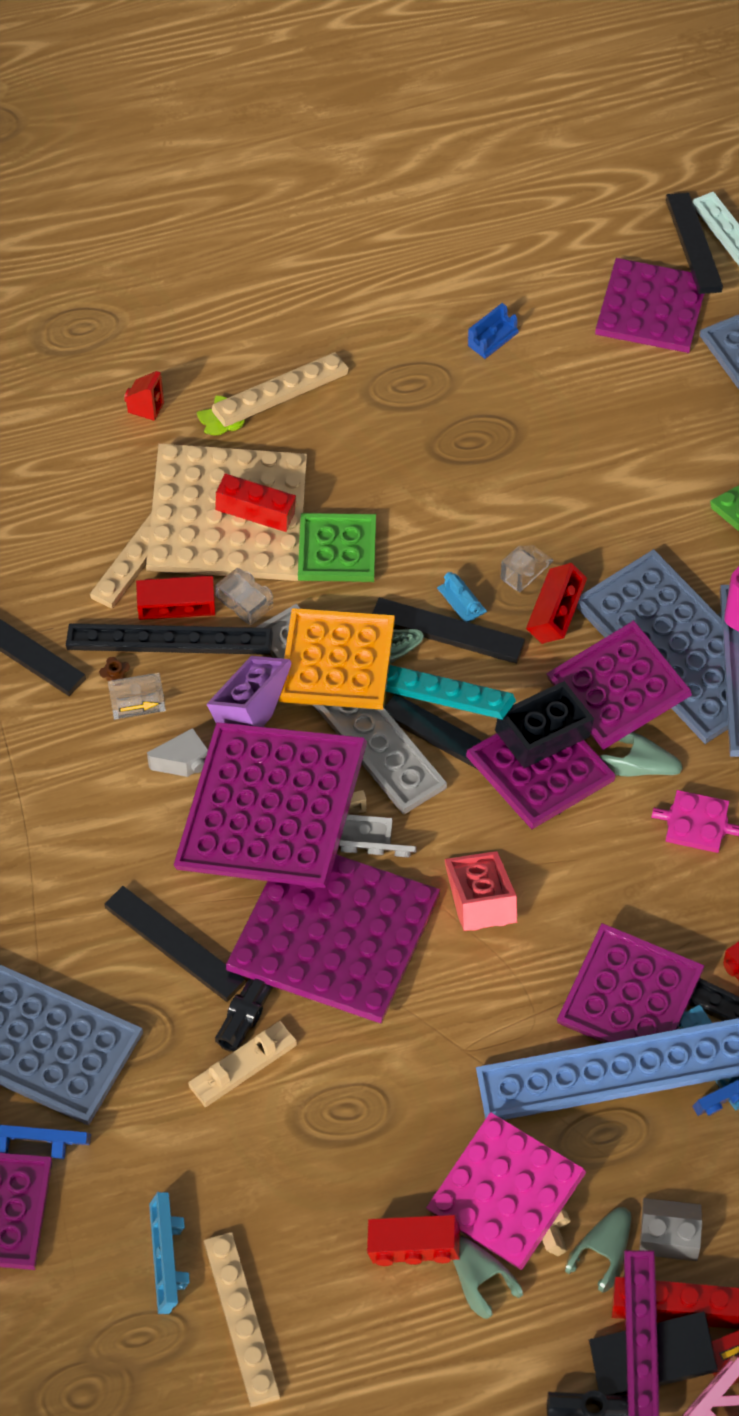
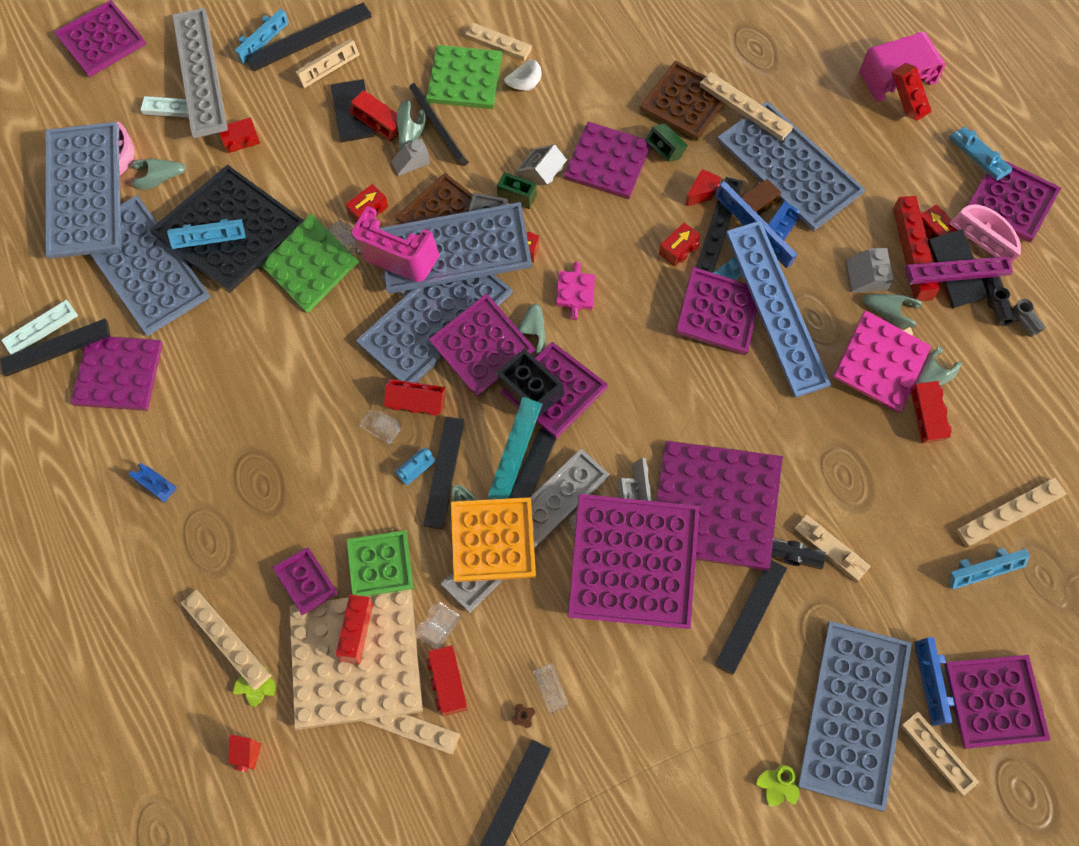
camera: 100 degrees left, 10 degrees up
(169, 639) = (488, 679): black tile -> none
(179, 756) = (594, 643): light grey slope -> none
(251, 692) = (534, 597): medium lavender slope -> none
(331, 467) = (305, 581): none -> magenta plate
(481, 891) = (660, 413): coral slope -> none

